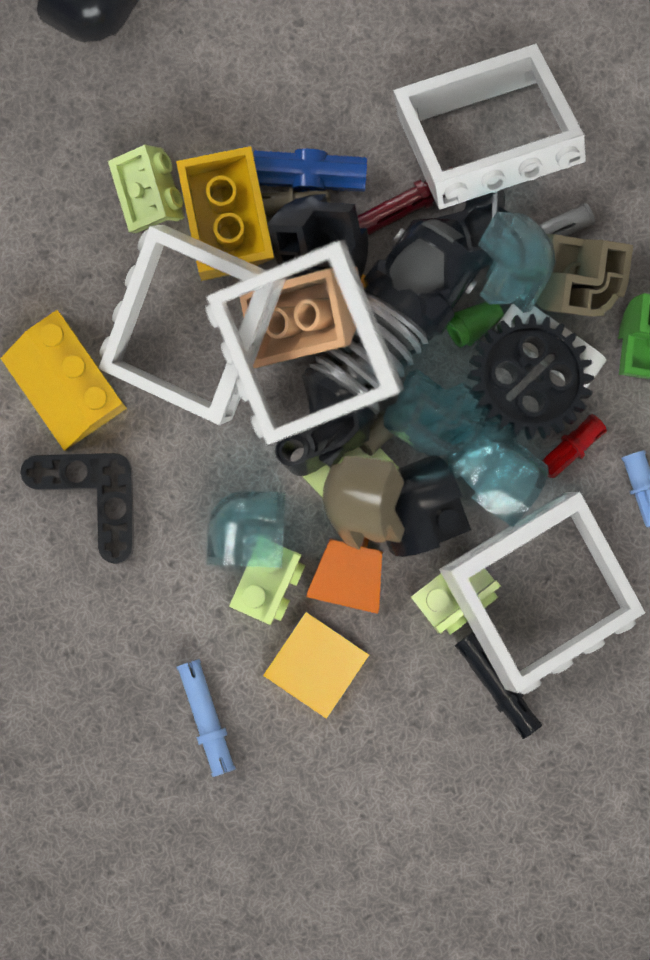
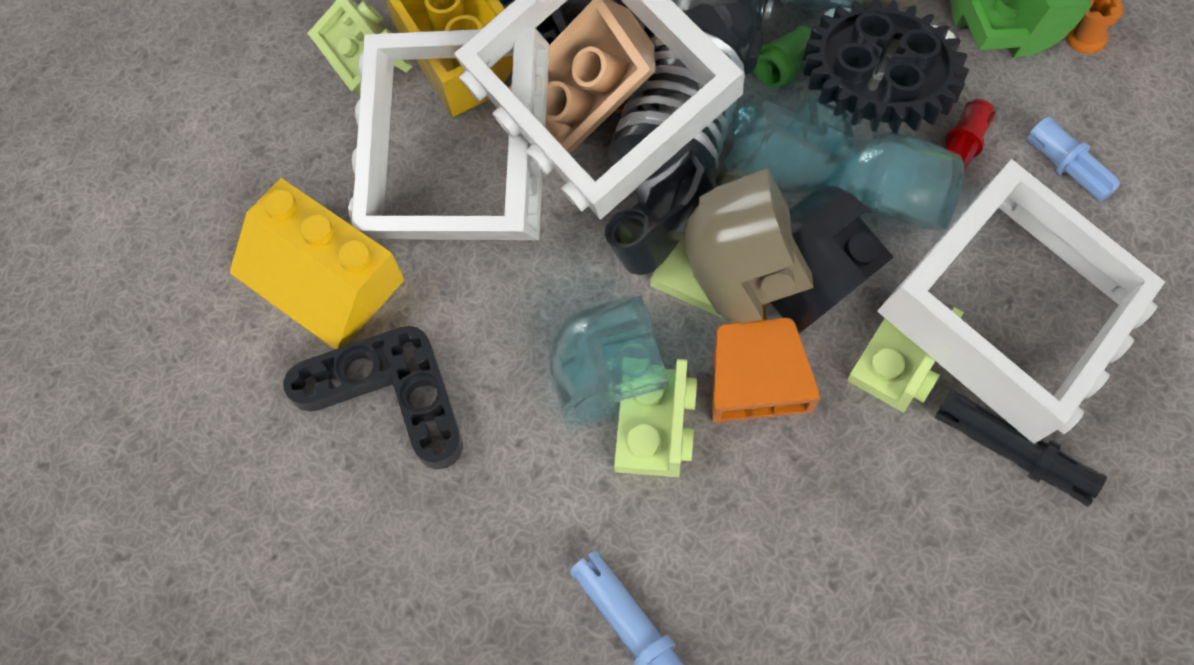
camera: 10 degrees left, 20 degrees down
(316, 665) = (762, 507): yellow tile -> none

